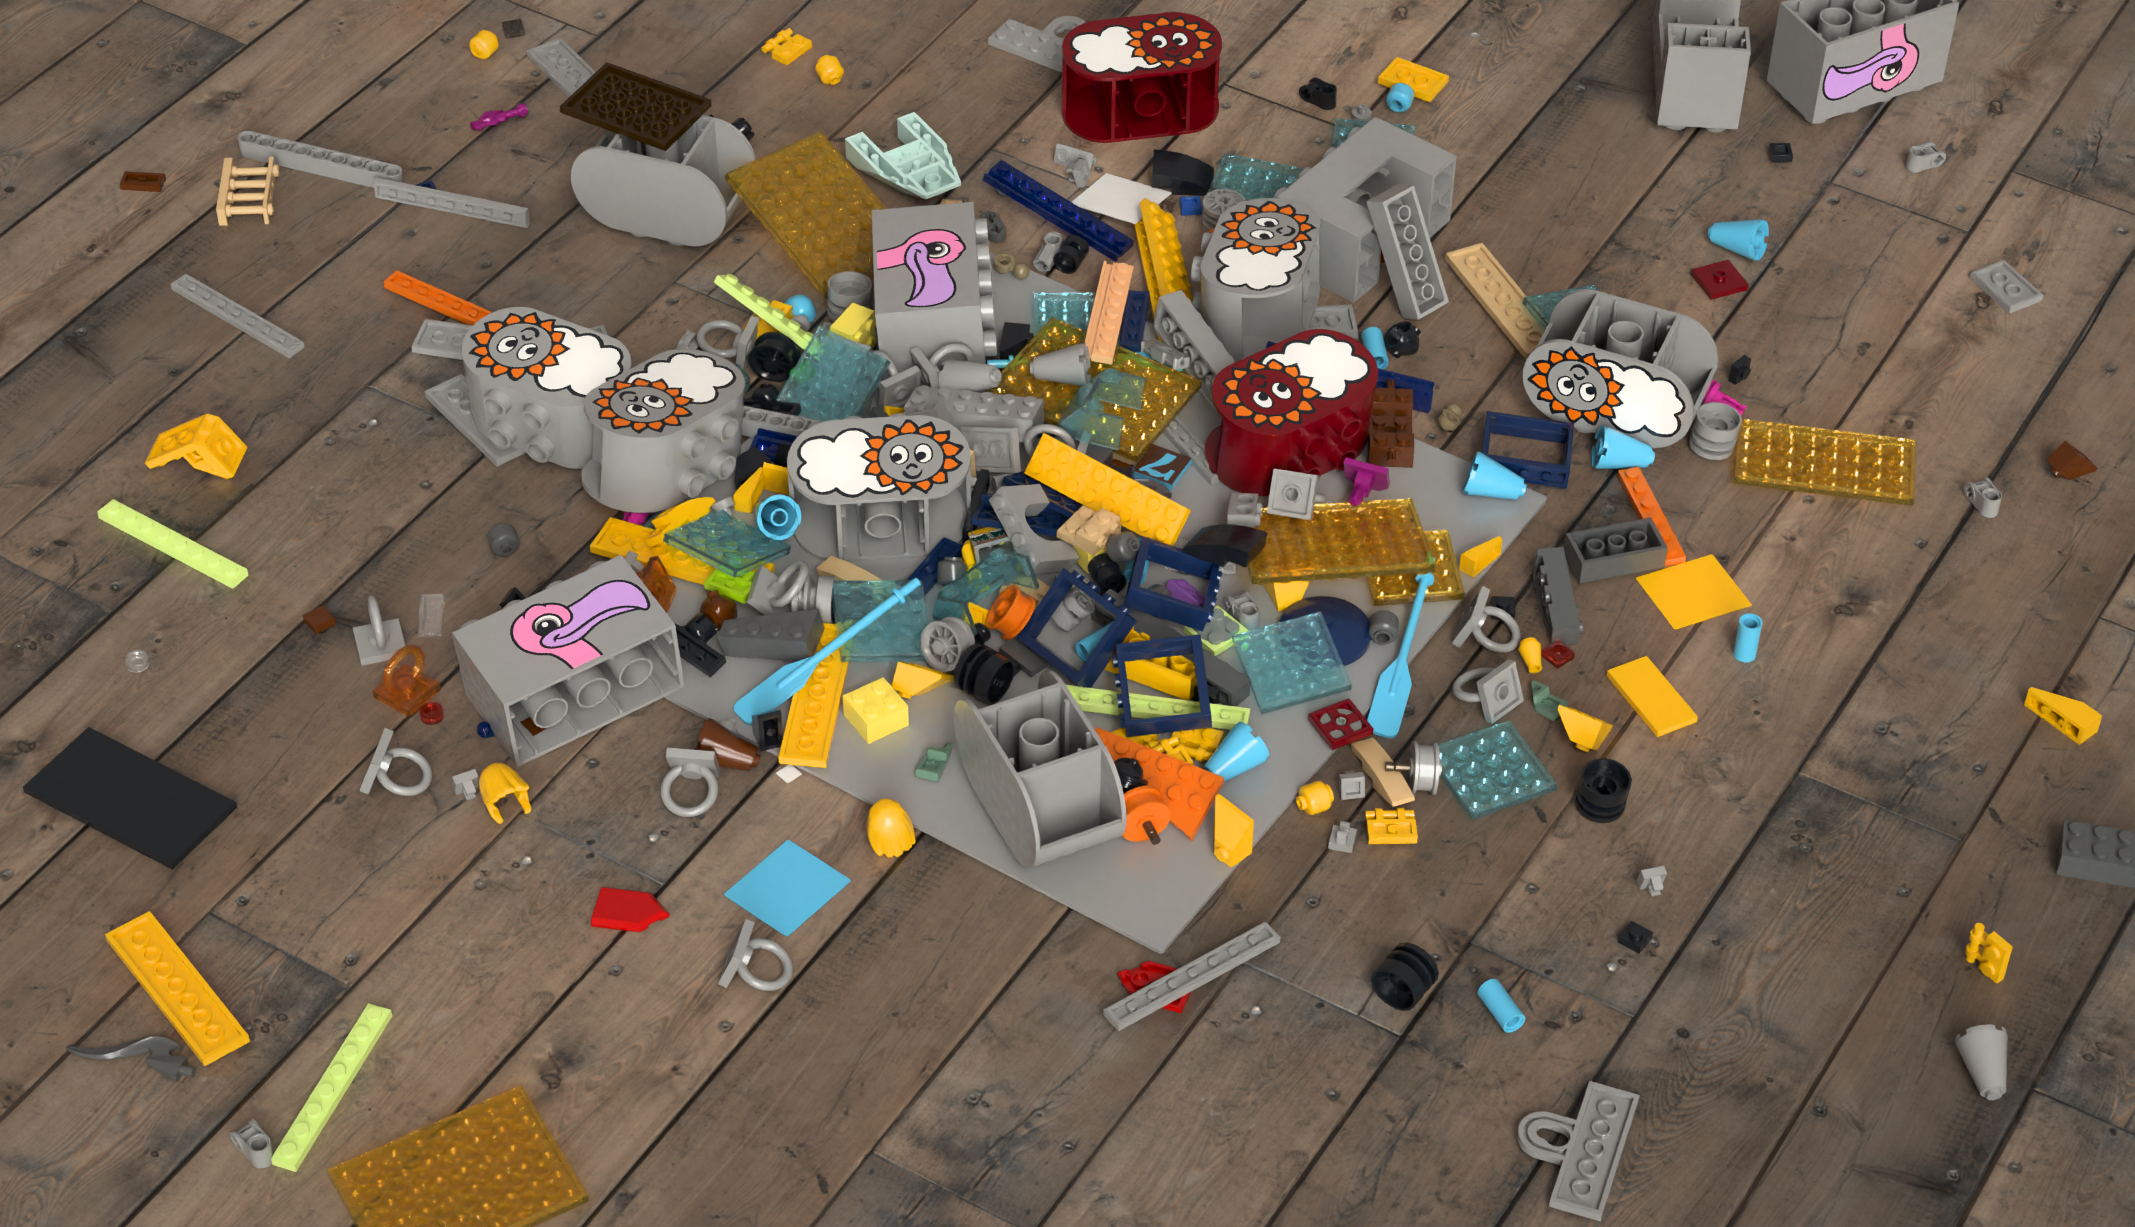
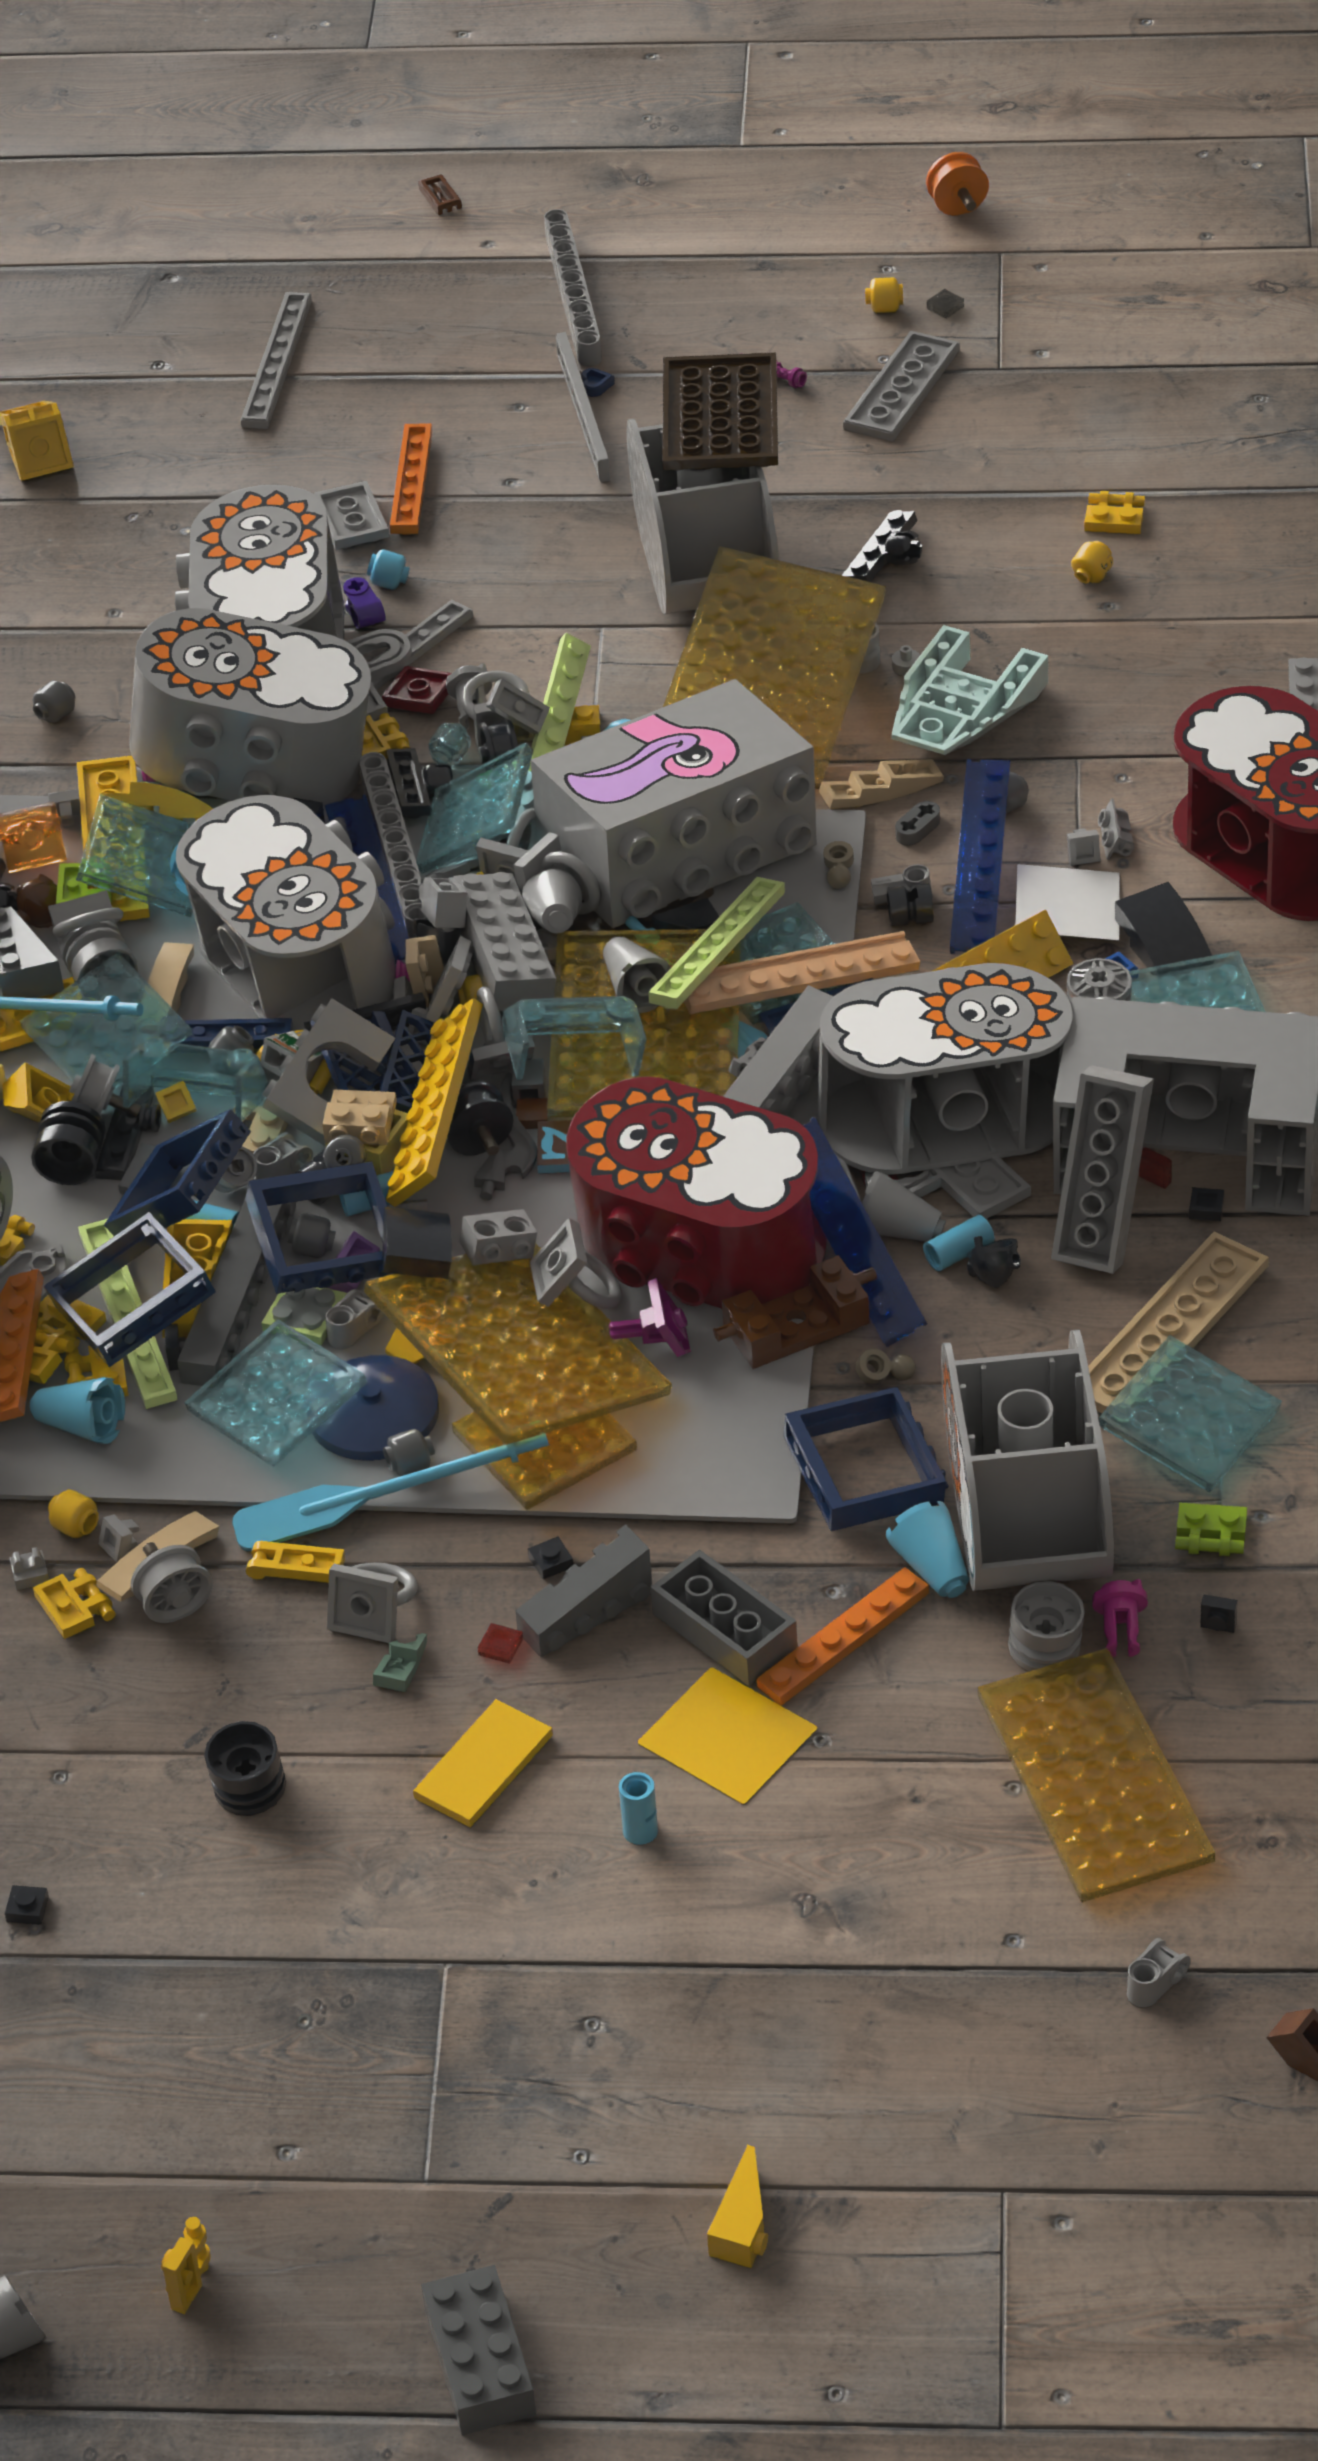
camera: 65 degrees right, 0 degrees up
(229, 184) = (470, 249): tan fence -> none
(767, 321) = (517, 706): none -> light grey tile
(1010, 612) = (180, 1115): orange wheel -> none
(1071, 324) = (716, 943): none -> yellowish green plate
(1340, 724) = (210, 1483): dark red piece -> none
(1429, 714) = (293, 1561): none -> yellow plate
(1475, 616) = (482, 1528): light grey tile -> none
(1479, 557) = (607, 1491): yellow slope -> none
(1492, 479) = (760, 1439): medium azure cone -> none
(1493, 770) = (233, 1655): clear light blue plate -> none
(1531, 653) = (474, 1614): yellow cone -> none
(1583, 728) = (368, 1711): yellow slope -> none
(1652, 880) = (127, 1882): light grey tile -> none

